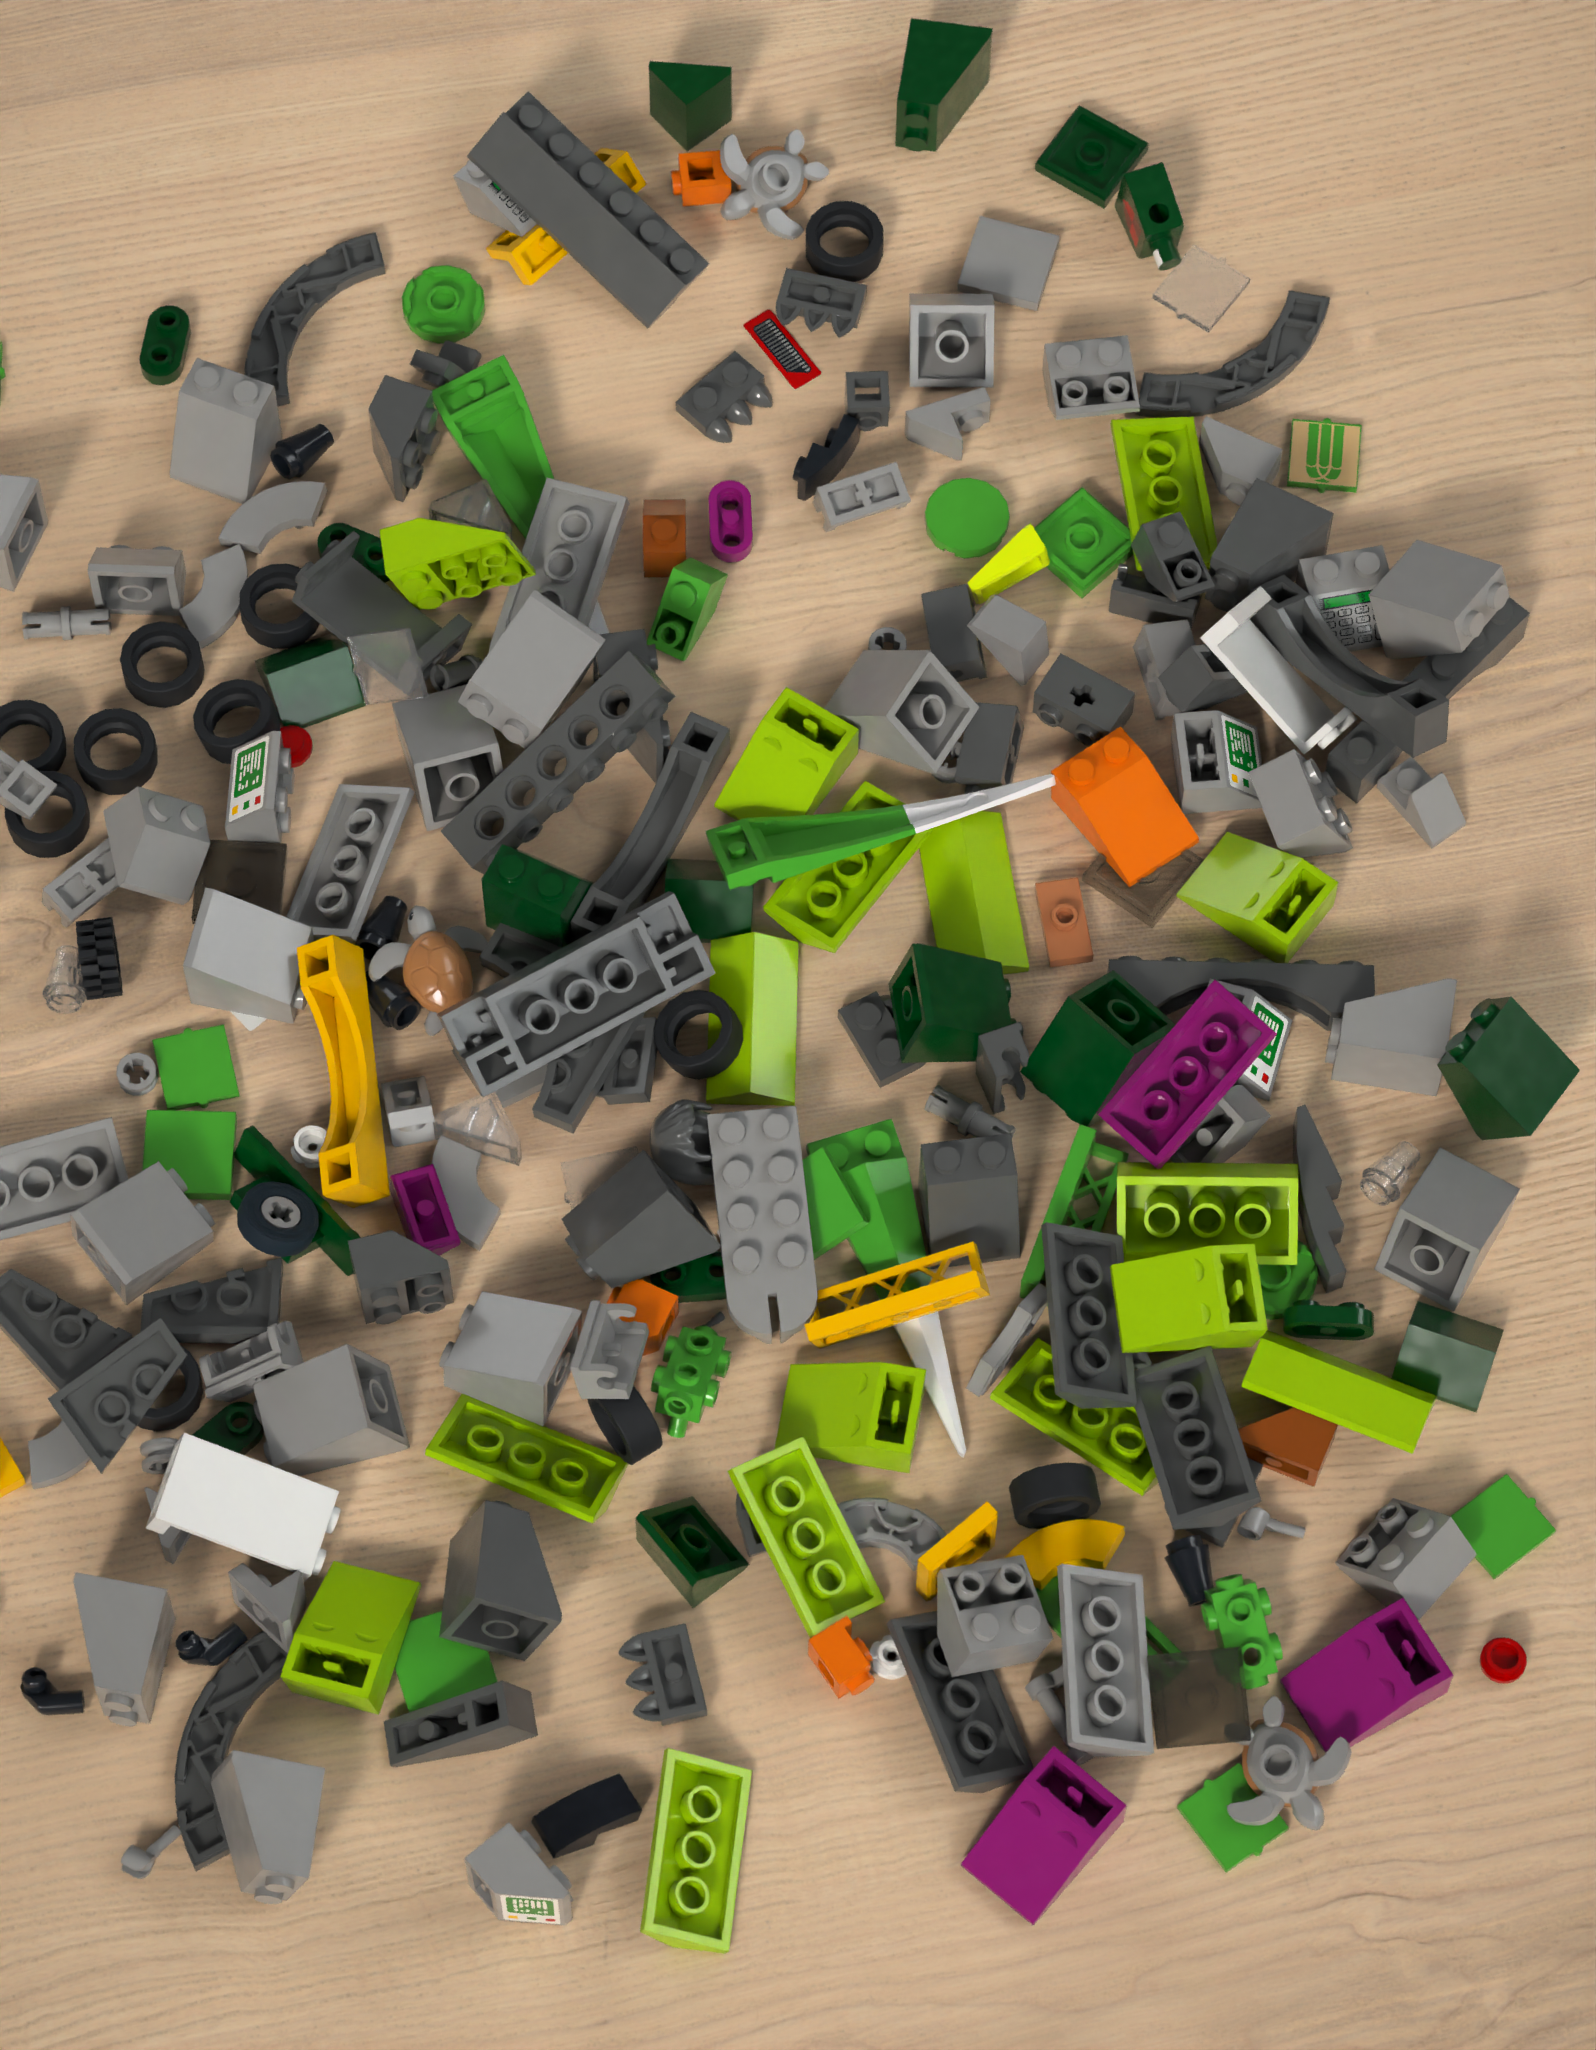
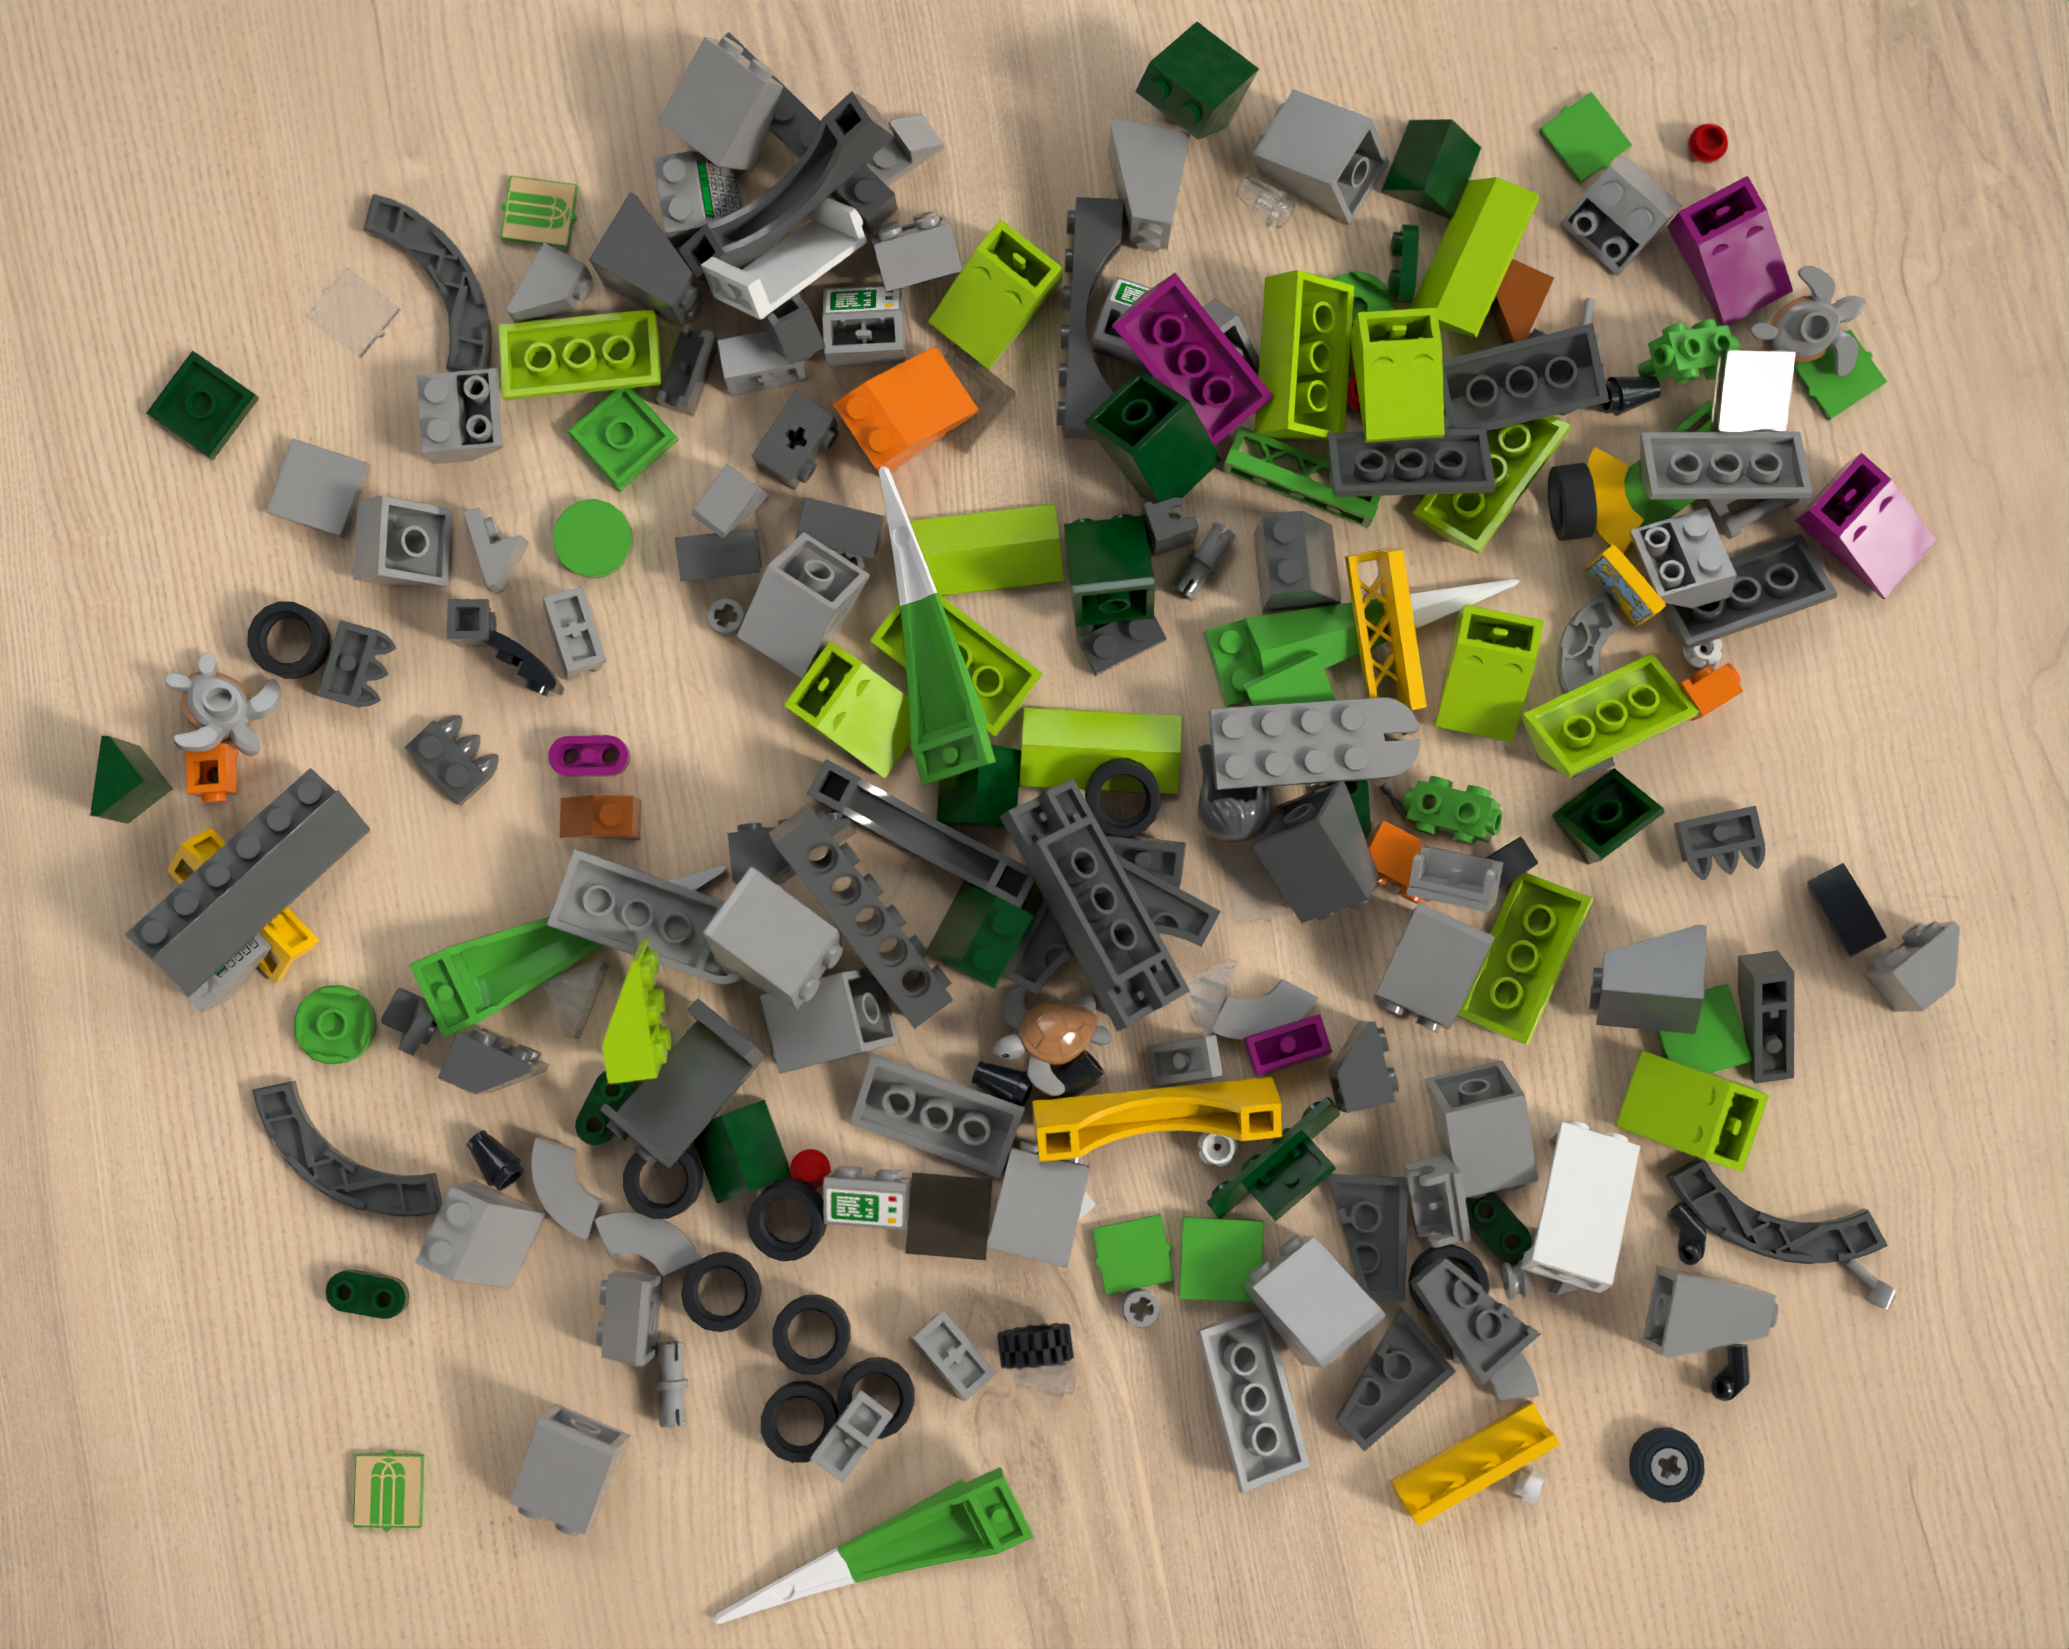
camera: 85 degrees left, 20 degrees up
(157, 844) = (924, 1294): light grey slope -> none
(268, 1821) = (1870, 1176): light grey slope -> none
(273, 1608) = (1670, 1171): light grey slope -> none
(275, 1235) = (1298, 1197): black bush -> none
(387, 666) = (746, 1077): clear piece -> none
(454, 673) = (741, 1005): dark grey pin -> none
(686, 607) = (681, 798): bright green slope -> none
(695, 1852) = (1876, 818): lime slope -> none
(782, 349) = (399, 704): sticker -> none
(939, 80) = (115, 544): dark green slope -> none
(999, 1354) = (1421, 535): light grey tile -> none
(1013, 563) = (645, 488): neon yellow slope -> none
(1063, 922) = (1011, 471): nougat plate -> none
(1151, 215) = (281, 348): dark green torso -> none
(1171, 558) = (665, 345): dark grey slope -> none
(1317, 1187) = (1273, 259): dark grey slope -> none

